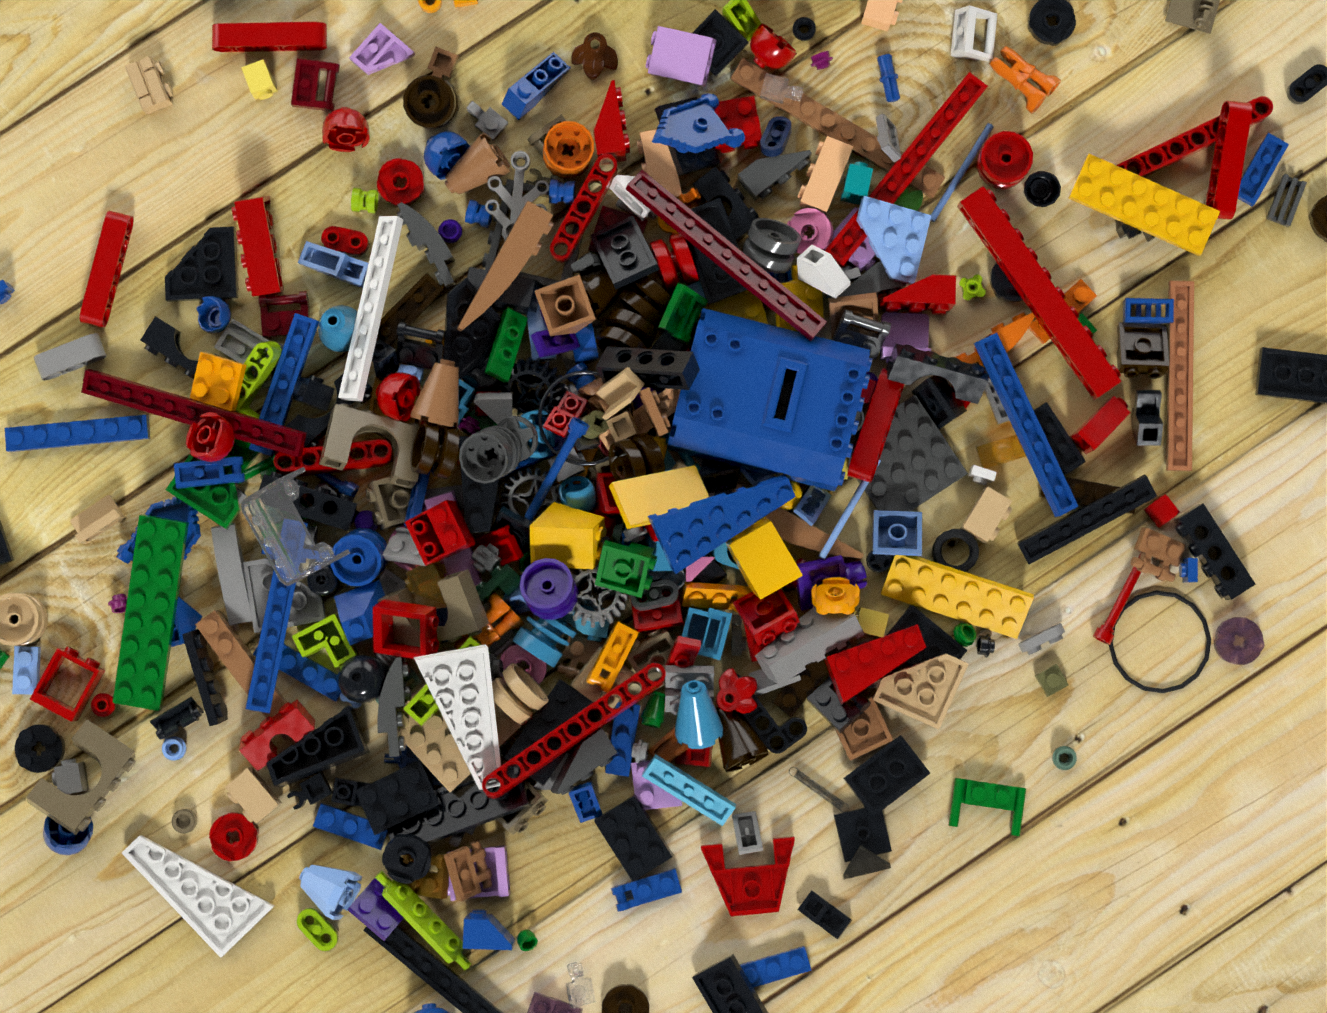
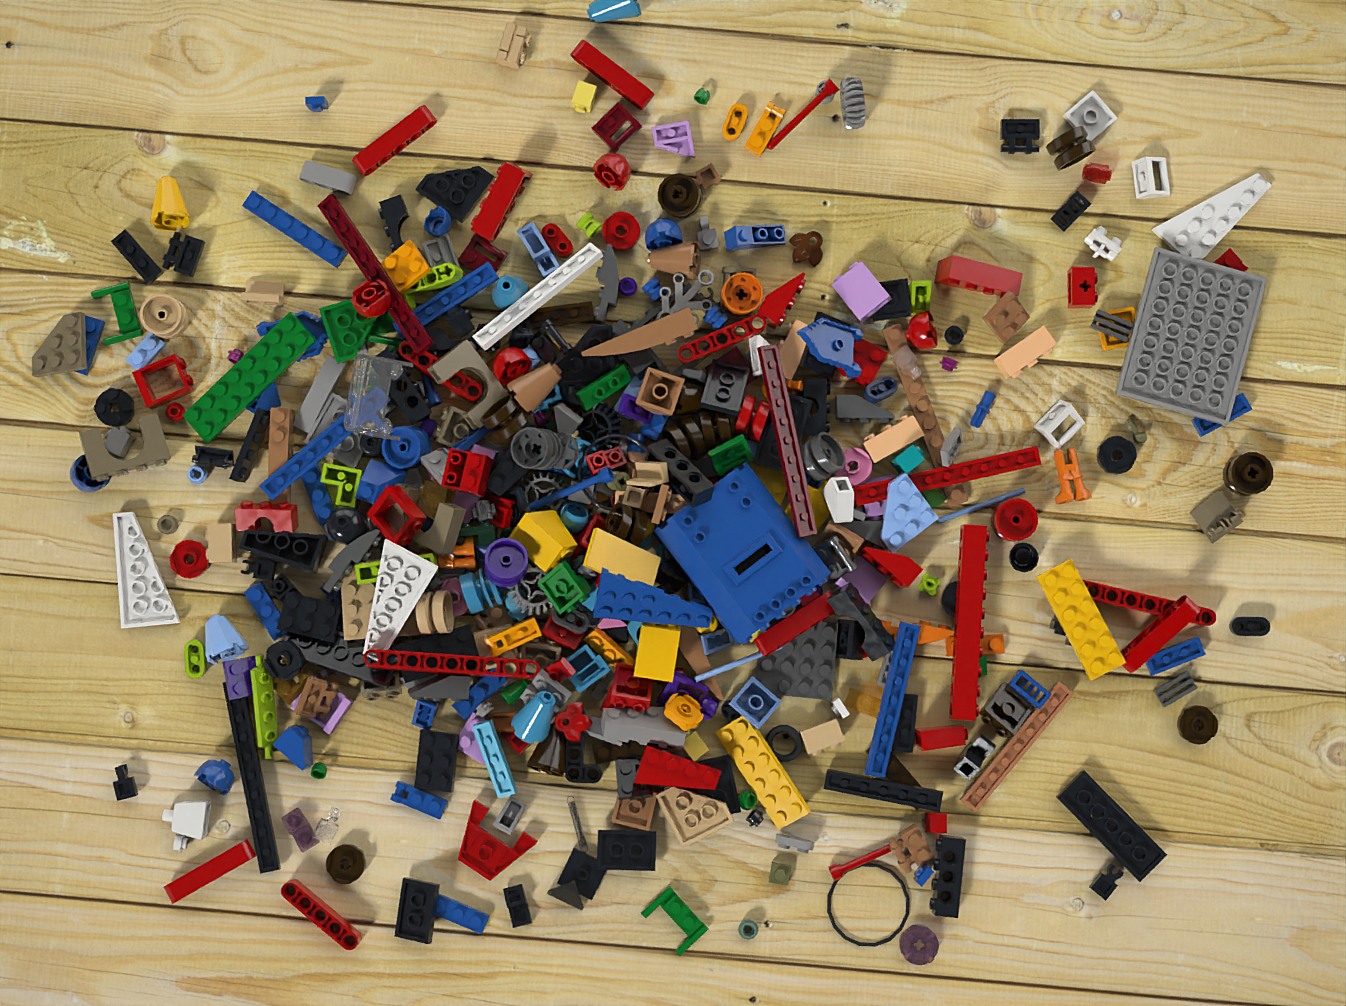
camera: 35 degrees right, 0 degrees up
(208, 473) = (352, 319): blue plate -> none

